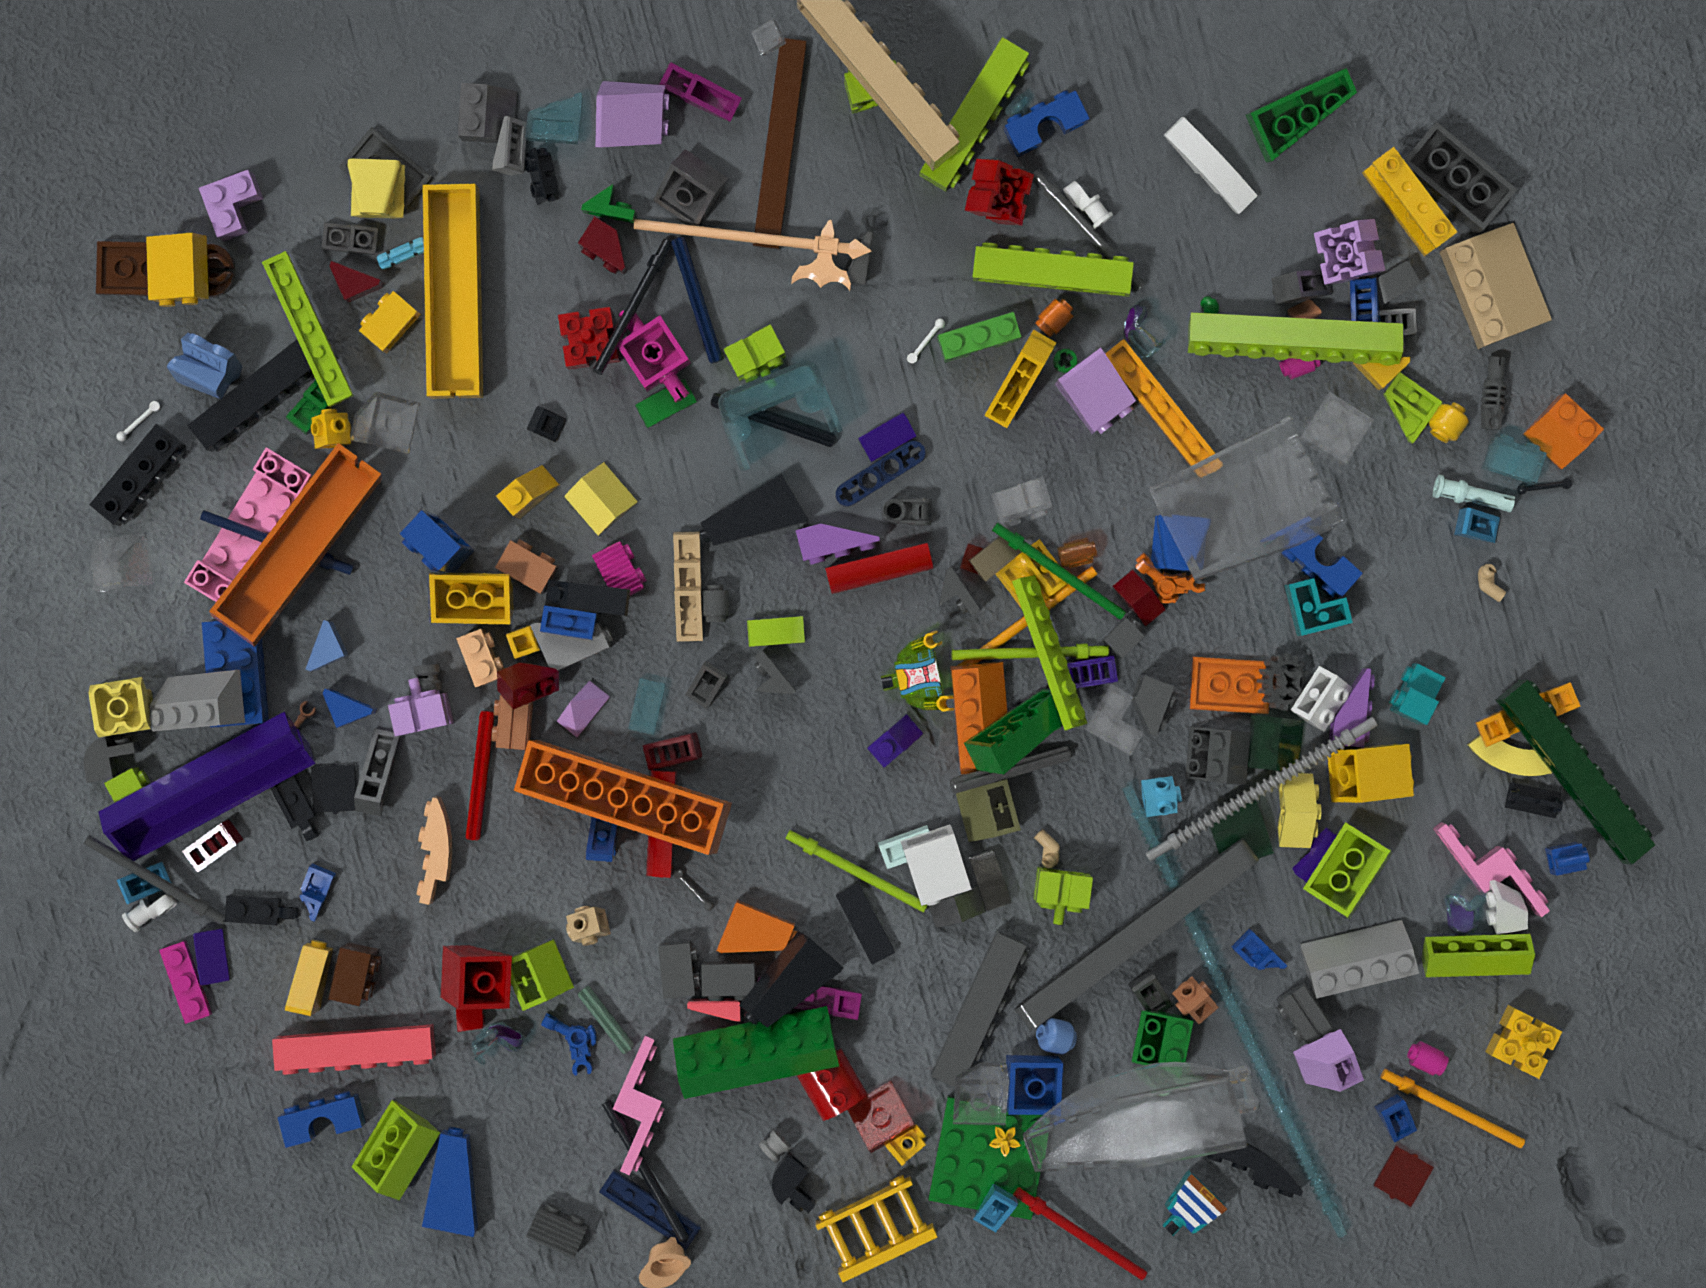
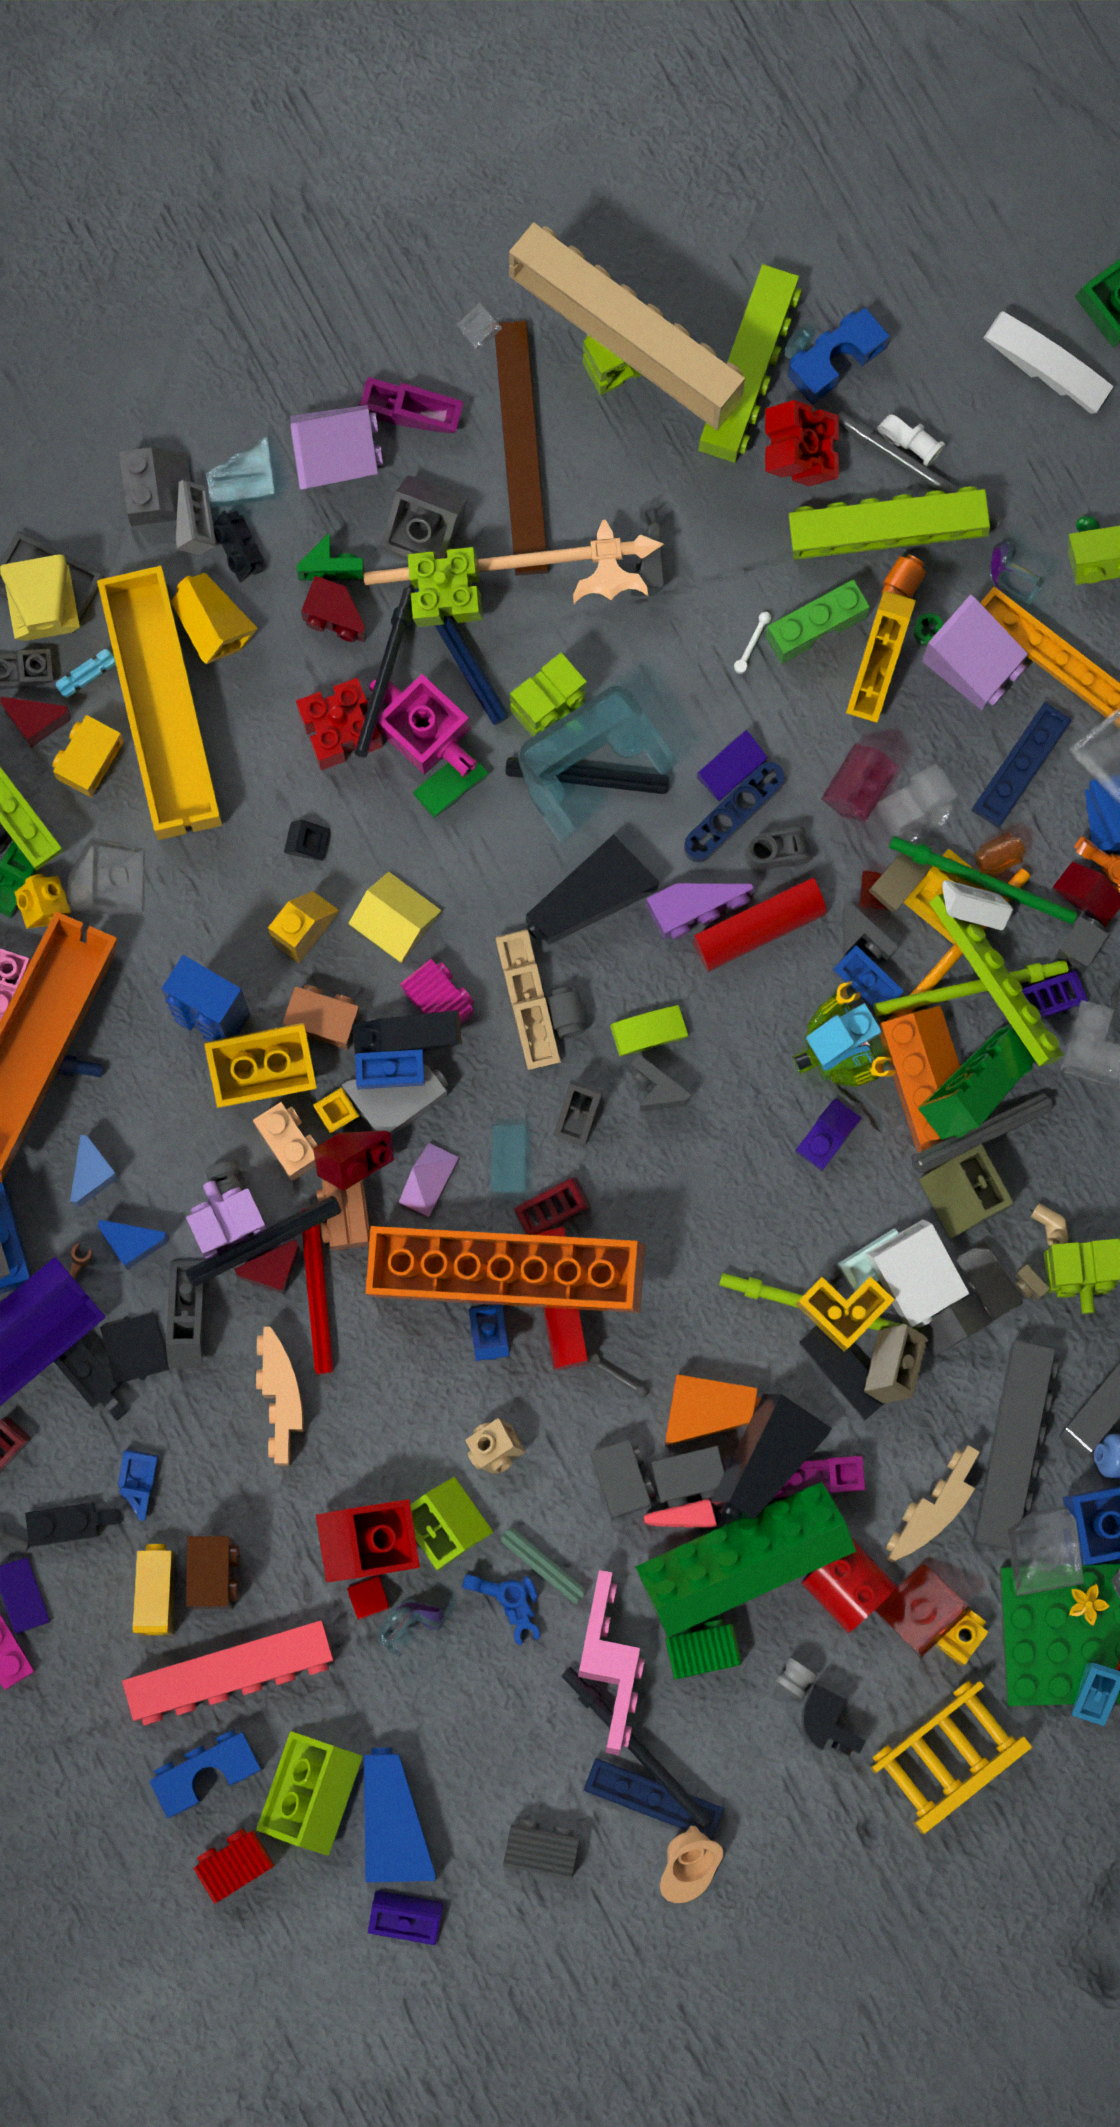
camera: 15 degrees left, 10 degrees down
(328, 1191) = (234, 1865): none -> red brick
(445, 732) = (263, 1241): none -> black axle
(448, 754) = (272, 1268): none -> dark red slope
(448, 1254) = (405, 1917): none -> dark purple slope
(506, 233) = (211, 618): none -> yellow slope
(693, 248) = (445, 587): none -> lime brick
(710, 1111) = (703, 1650): none -> green brick
(872, 889) = (842, 1318): none -> yellow brick
(901, 1050) = (928, 1519): none -> tan slope
(903, 930) = (895, 1364): none -> dark tan brick
(922, 671) = (843, 1034): none -> medium azure slope
(951, 627) = (866, 977): none -> blue plate
(981, 474) = (860, 782): none -> clear pink brick
(1020, 890) = (1030, 1284): none -> dark tan plate
(1047, 591) = (976, 905): none -> white slope
(1112, 484) = (1021, 764): none -> dark blue tile

